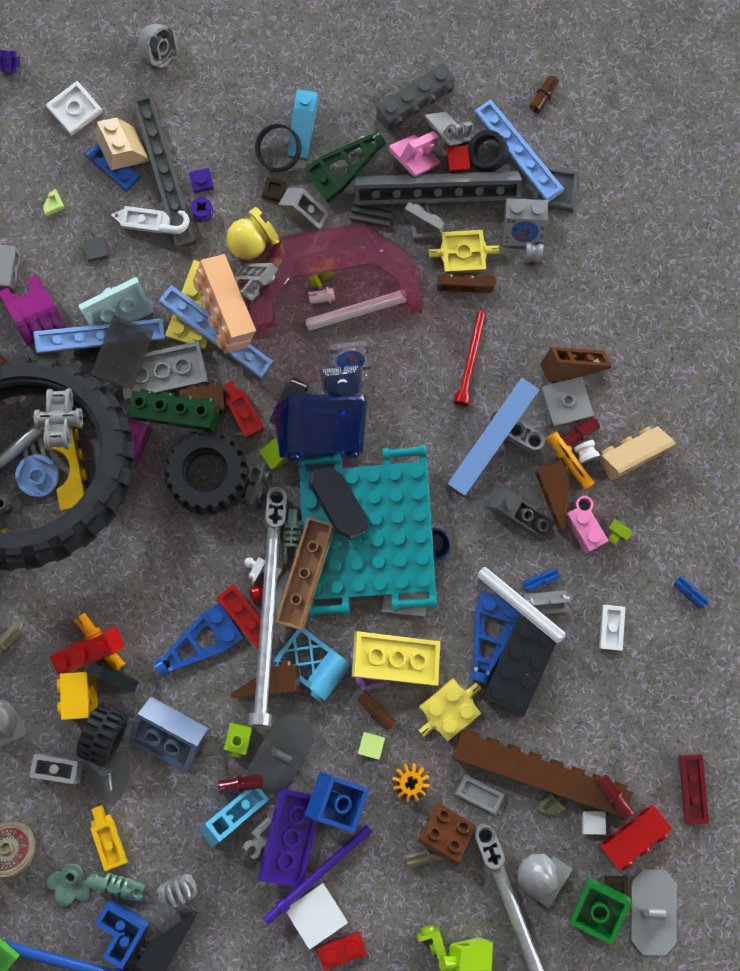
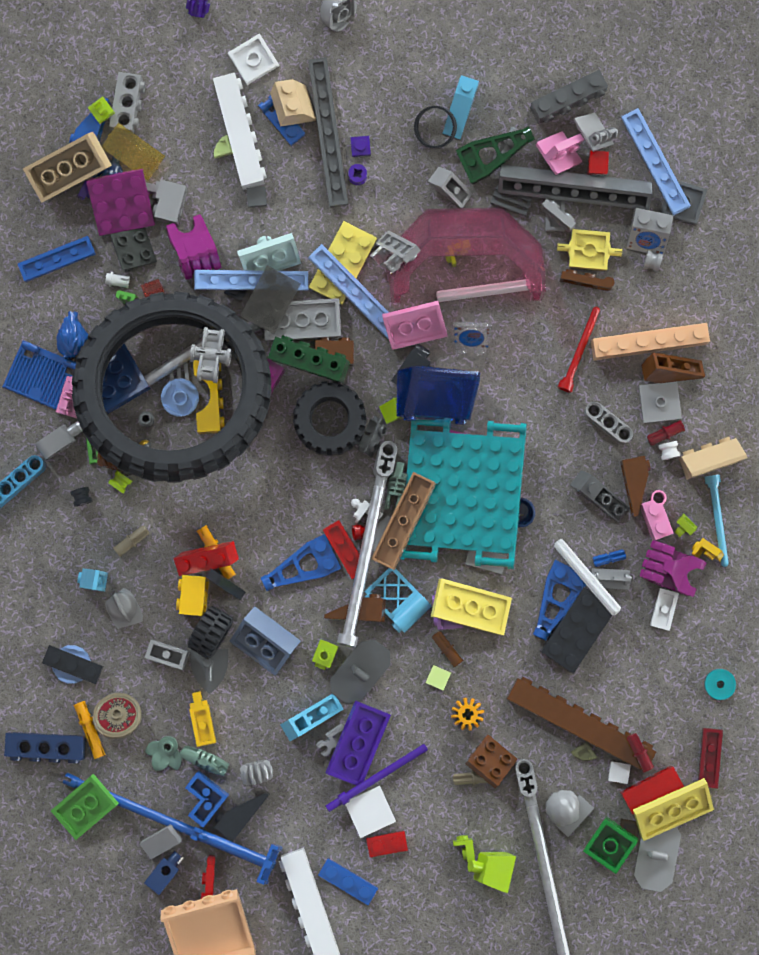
camera: 15 degrees right, 5 degrees up
(67, 182) = (238, 131): none -> white brick
(149, 220) = (309, 178): white plate -> none
(224, 304) = (366, 270): light nougat piece -> none
(240, 784) = (321, 692): dark red axle -> none
(243, 411) = (368, 367): red hinge -> none
(248, 237) = (397, 208): light yellow tile -> none
(274, 189) = (426, 164): dark brown tile -> none
(286, 357) = (414, 325): none -> bright pink plate
(321, 296) = (454, 272): white pin -> none
(337, 802) = (402, 719): blue brick -> none
(338, 502) = (442, 463): black shield -> none
(342, 380) = (461, 355): dark blue torso -> none
(450, 709) = (511, 657): light yellow plate -> none
(479, 794) = (525, 733): light grey tile -> none
(481, 137) = (641, 158): black tyre -> none
(493, 436) = (588, 425): light blue tile -> none
(544, 93) = (689, 109): reddish brown axle -> none
(545, 336) = (650, 341): none -> light nougat brick
(557, 442) = (642, 436): light orange pin -> none
(611, 580) = (670, 568): none -> magenta piece
(641, 481) = (713, 483): none -> medium azure piece
(651, 553) = (710, 550): none -> yellow bracket
(664, 856) = (673, 809): none -> light yellow plate
(693, 595) = (742, 592): blue piece -> none
(698, 706) = (728, 680): none -> teal piece

